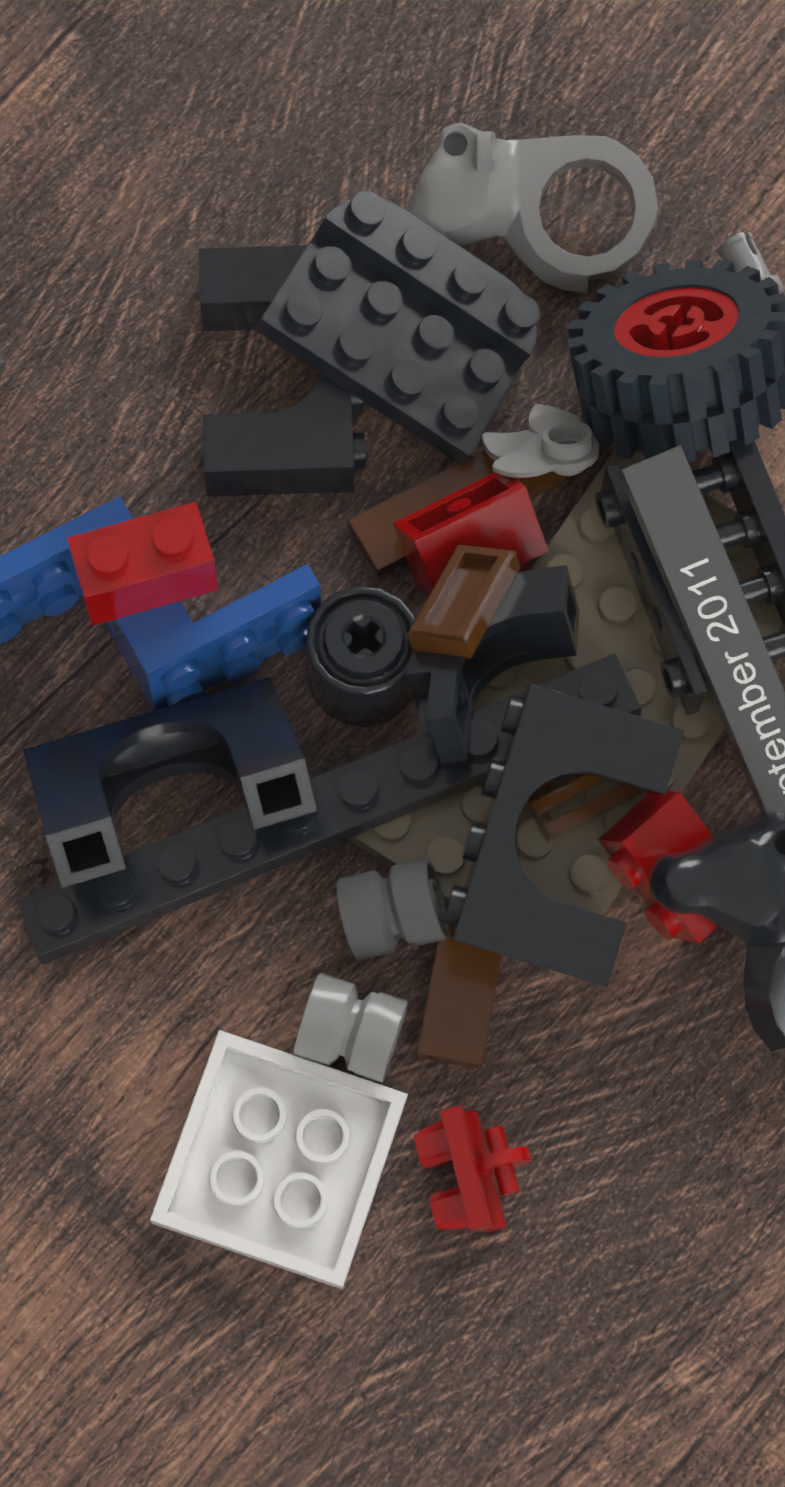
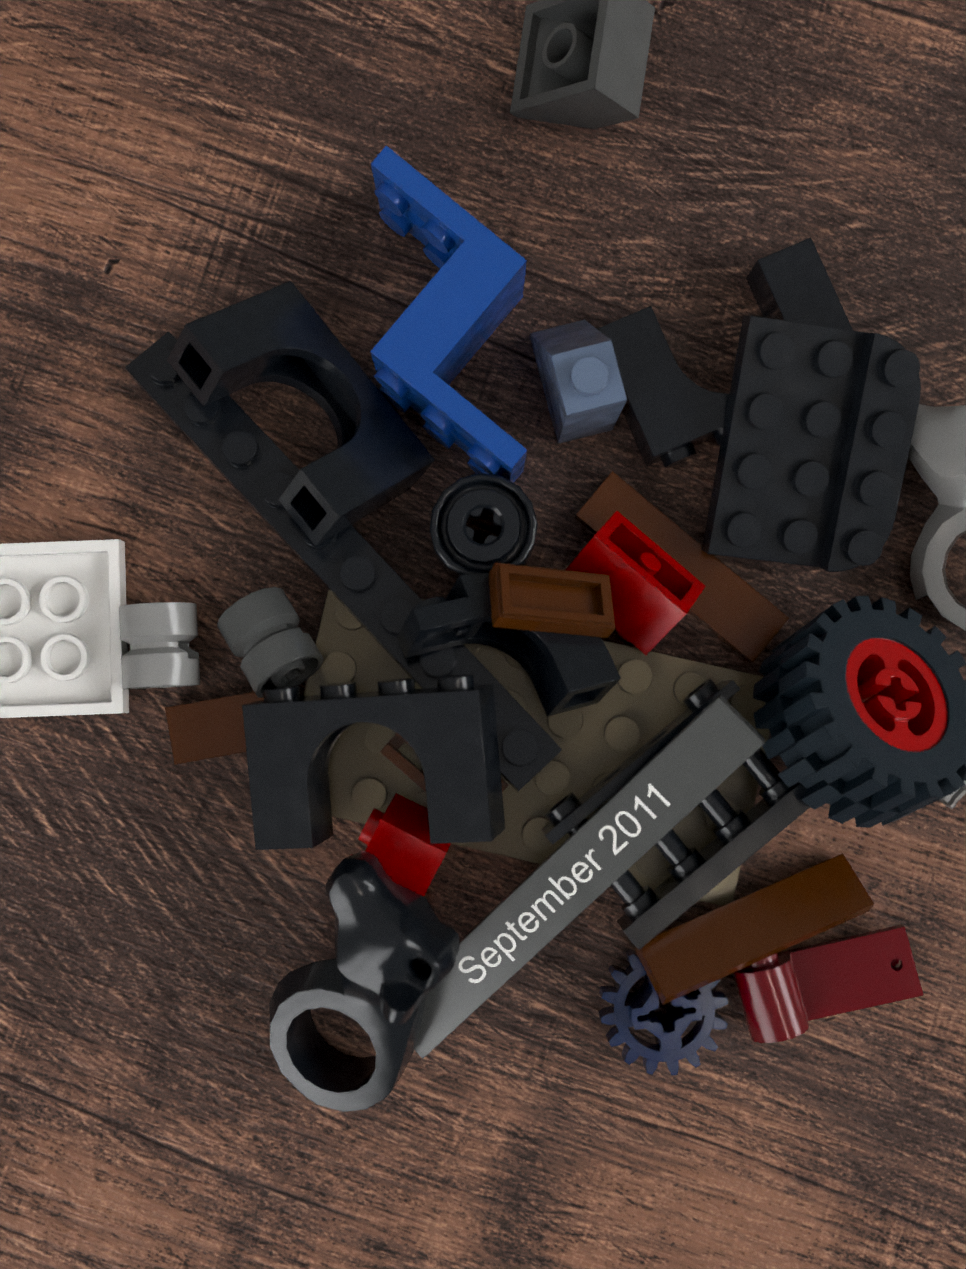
camera: 70 degrees right, 15 degrees up
(143, 563) = (456, 302): red brick -> none
(251, 503) = (579, 379): none -> sand blue slope
(462, 1142) = (86, 793): red hips -> none
(552, 443) = (742, 620): light grey plate -> none

